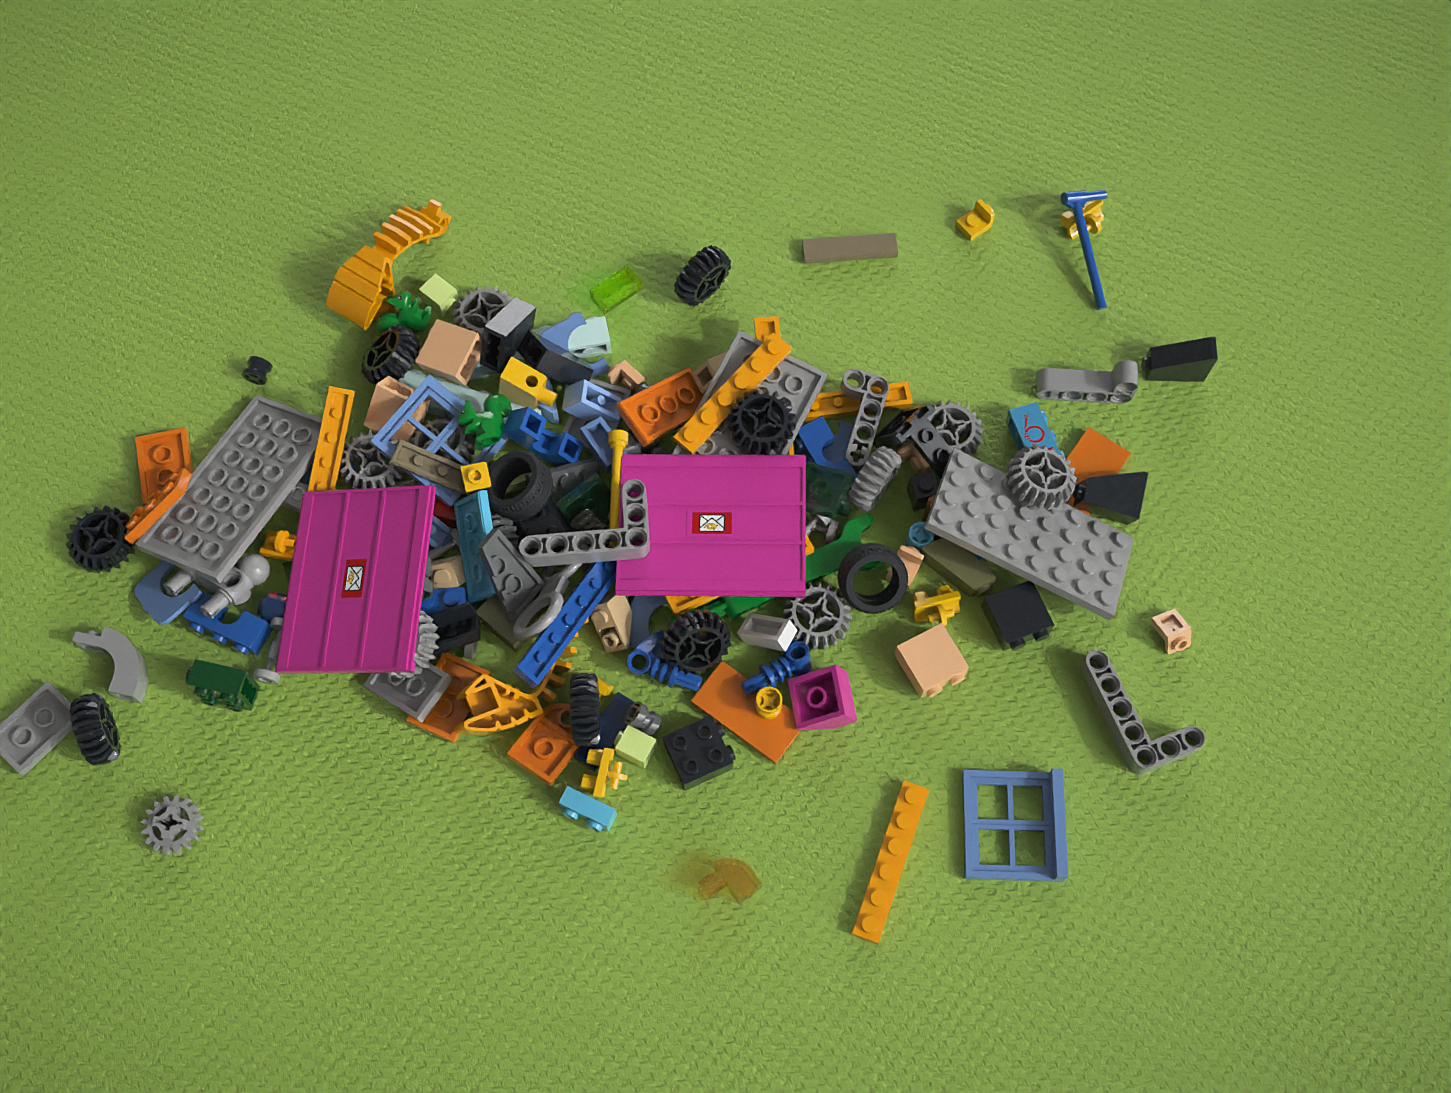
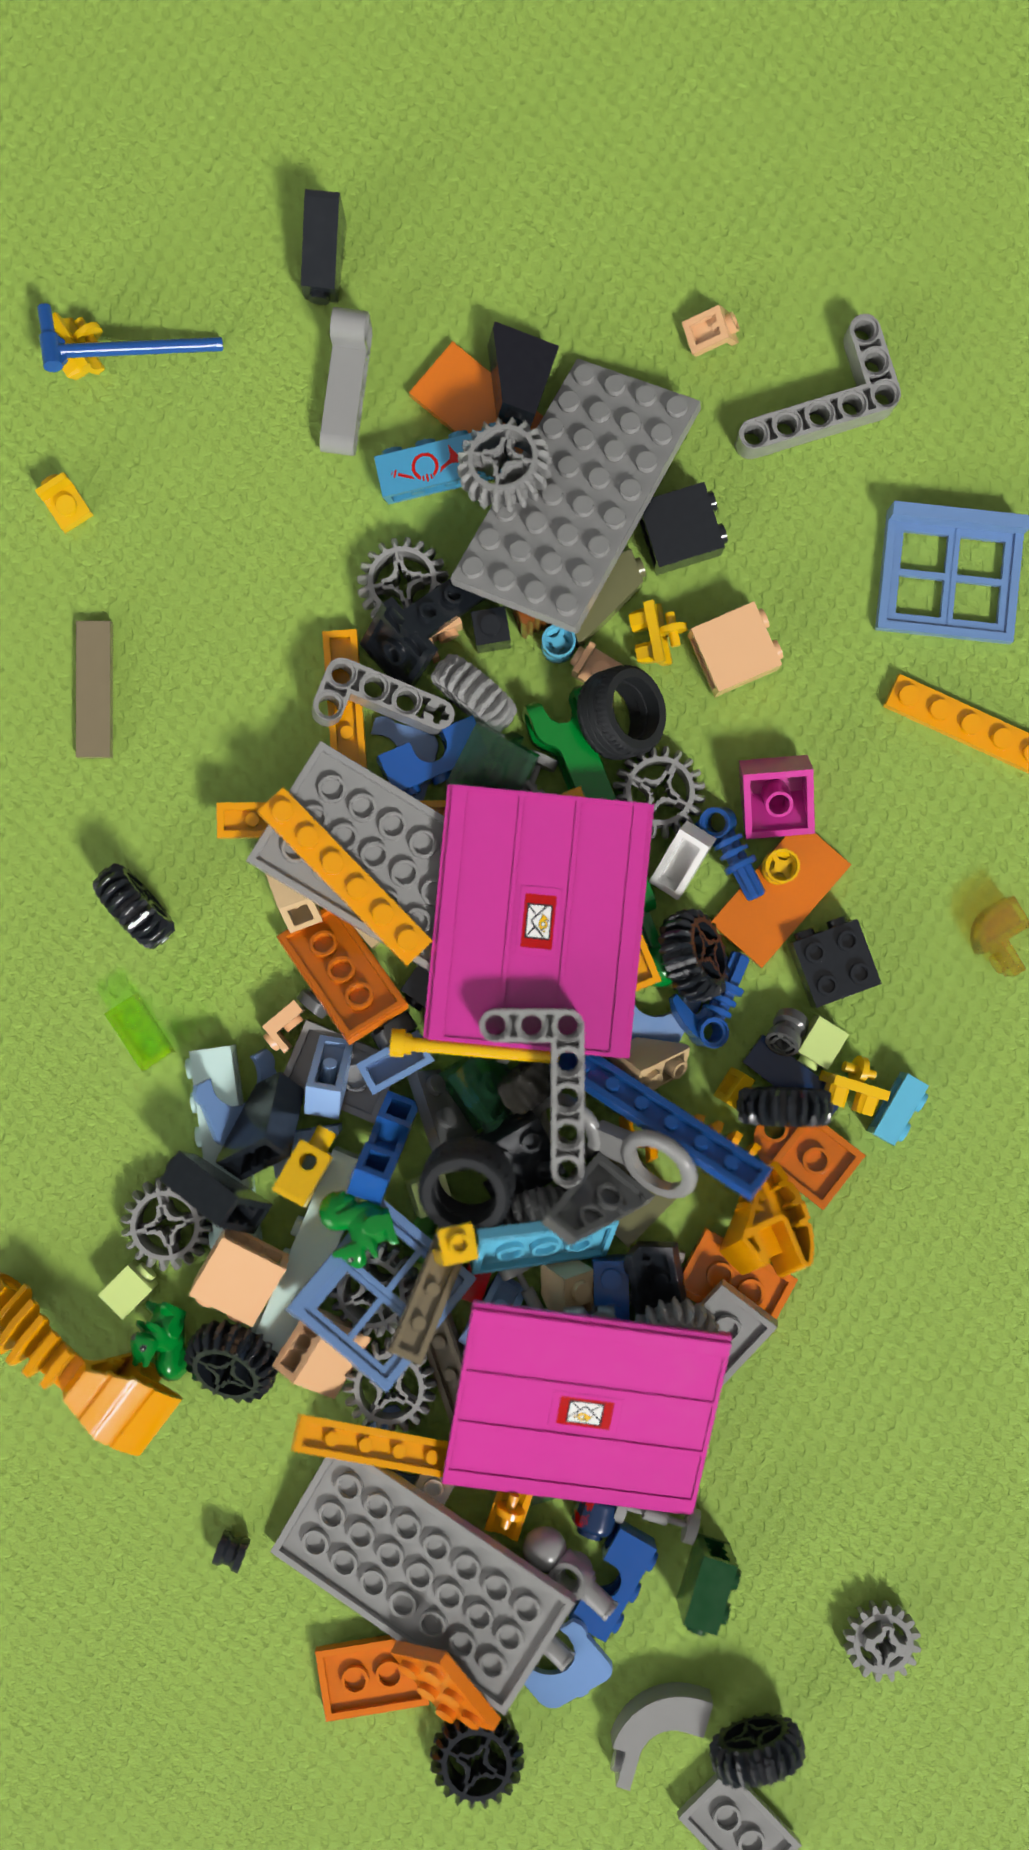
camera: 85 degrees left, 20 degrees up
(770, 426) = (379, 831): black gear -> none

